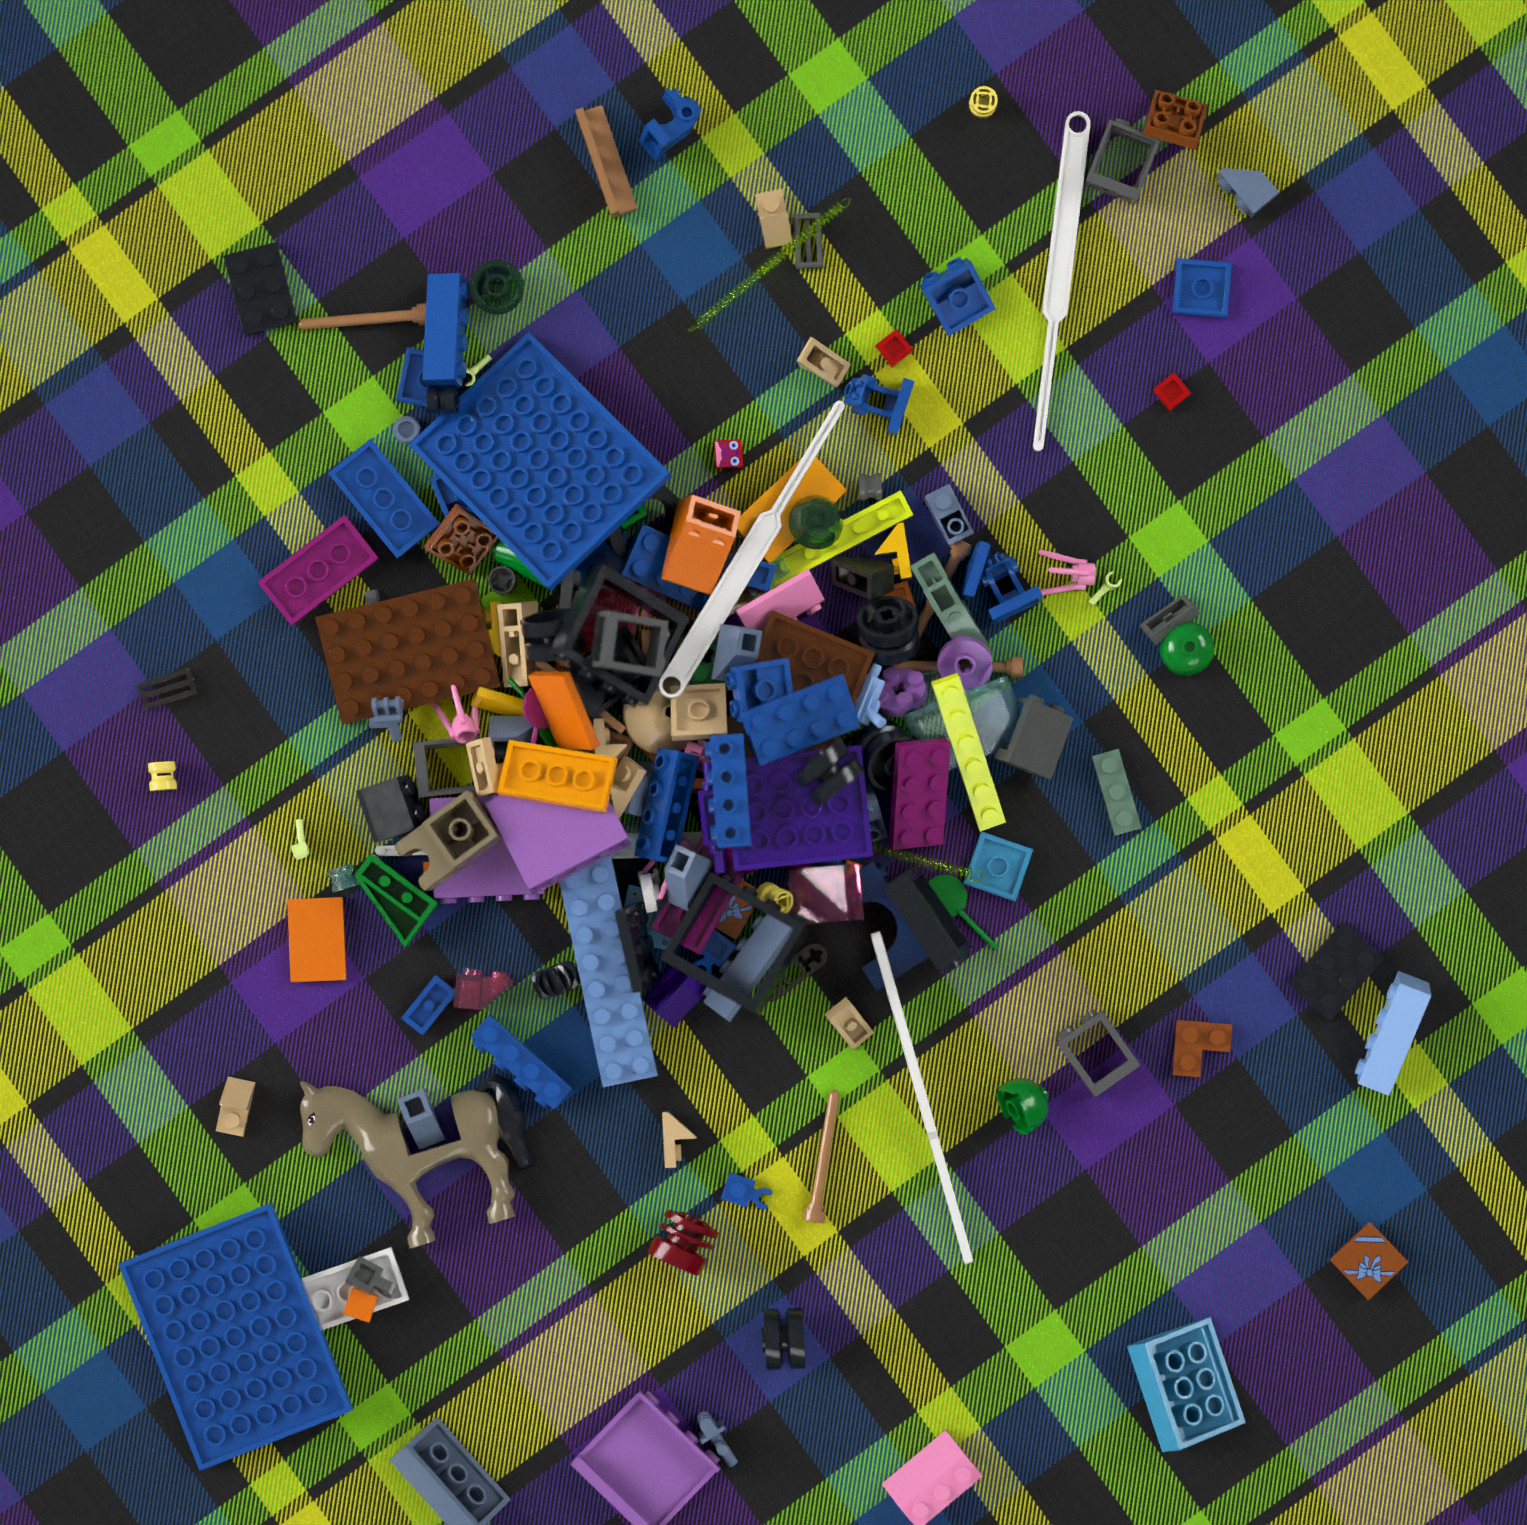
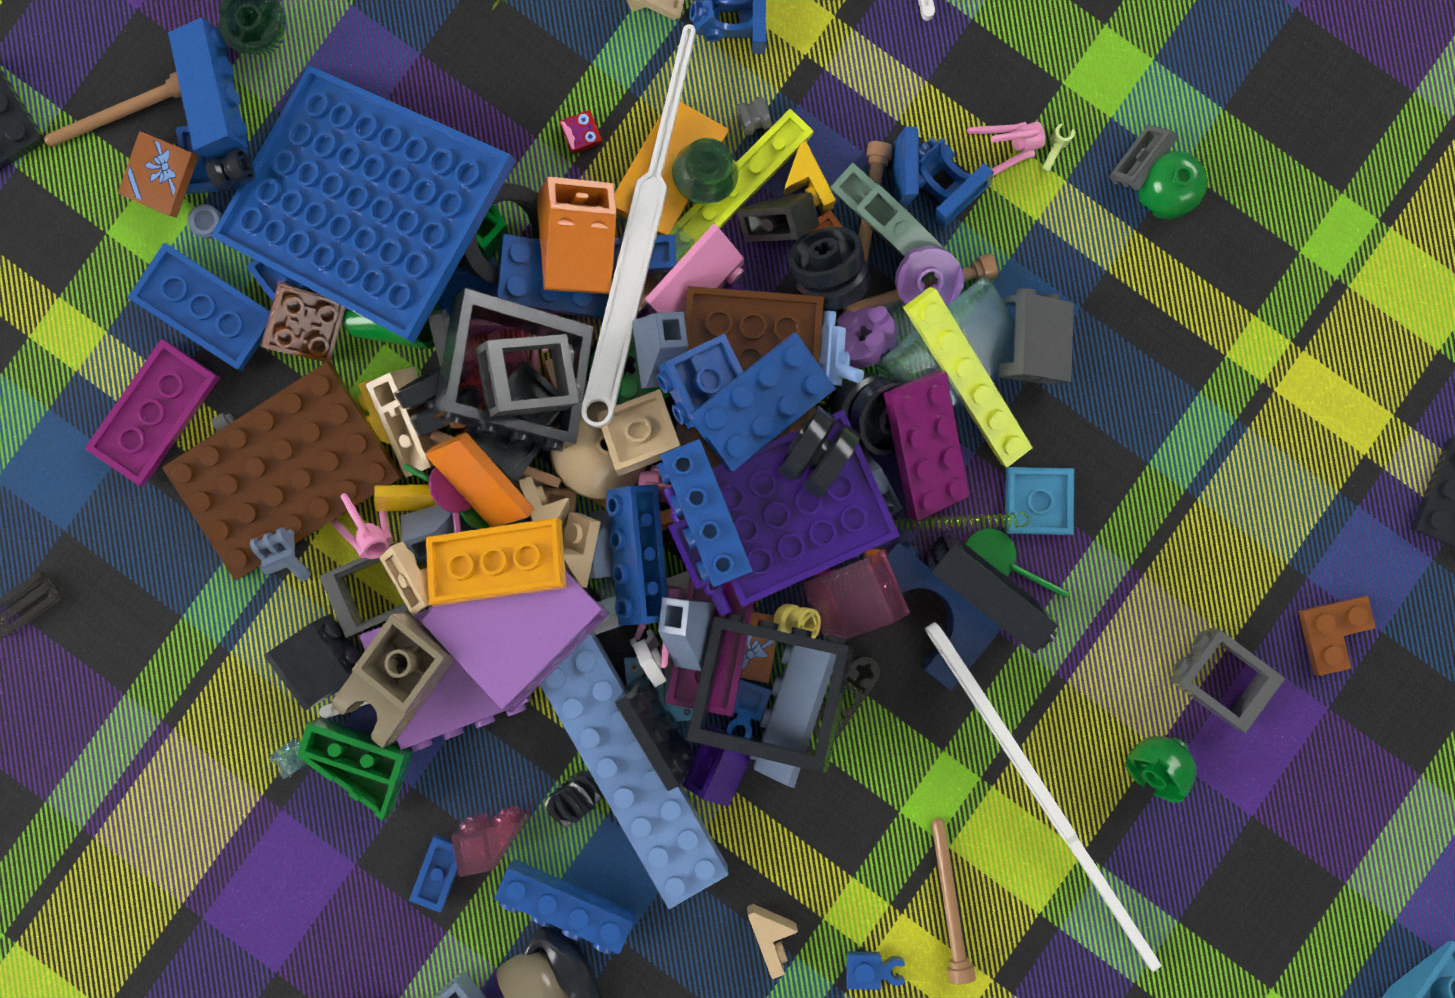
camera: 20 degrees left, 0 degrees up
(162, 783) = (45, 715): light yellow wheel -> none
(300, 849) = (235, 738): yellowish green hand -> none
(316, 939) = (285, 838): orange tile -> none
(383, 383) = (158, 174): none -> dark orange tile
(475, 369) = (263, 127): yellowish green hand -> none
(502, 576) = (361, 356): dark grey wheel -> none
(849, 1023) = (929, 737): tan slope -> none
(948, 514) = (852, 116): sand blue slope -> none
(1116, 792) = (1145, 373): sand green plate -> none

